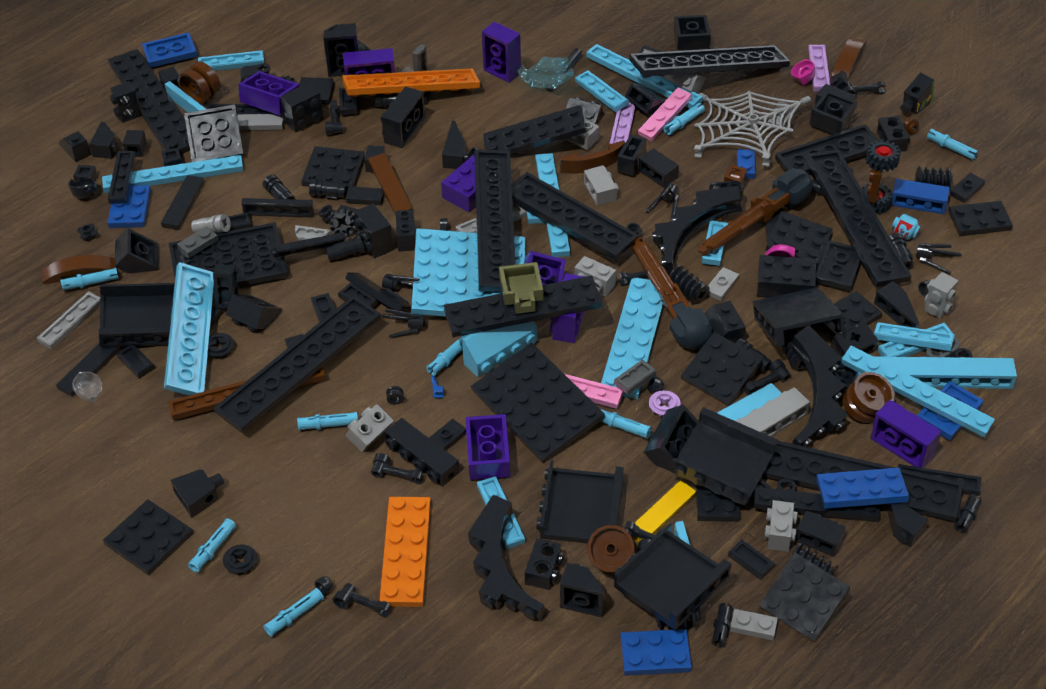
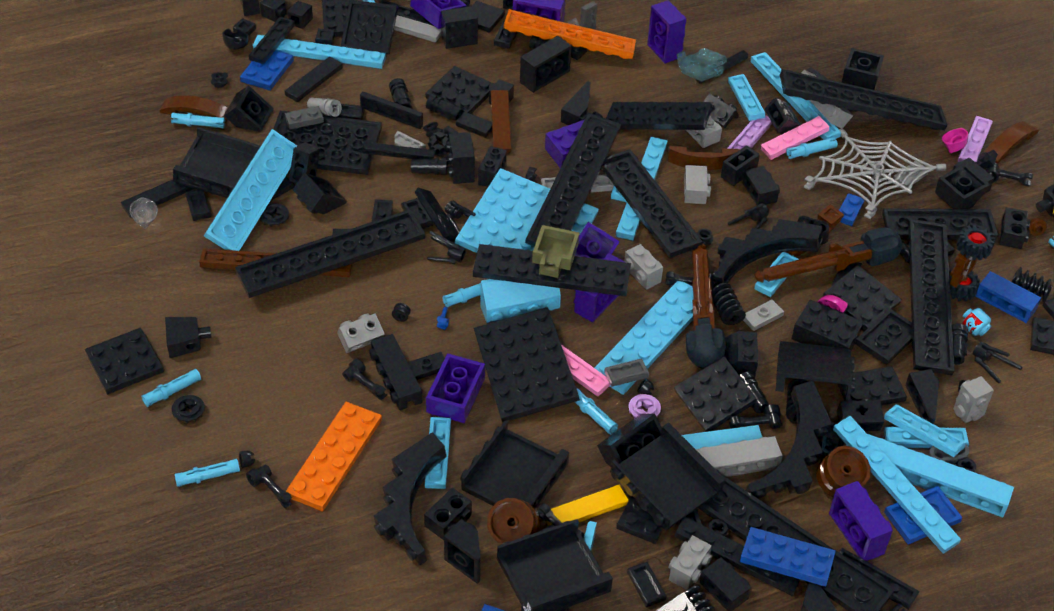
camera: 20 degrees right, 0 degrees up
(69, 320) = (162, 151): light grey tile -> none
(318, 422) = (323, 312): medium azure pin -> none
(334, 125) = (482, 53): black brick -> none

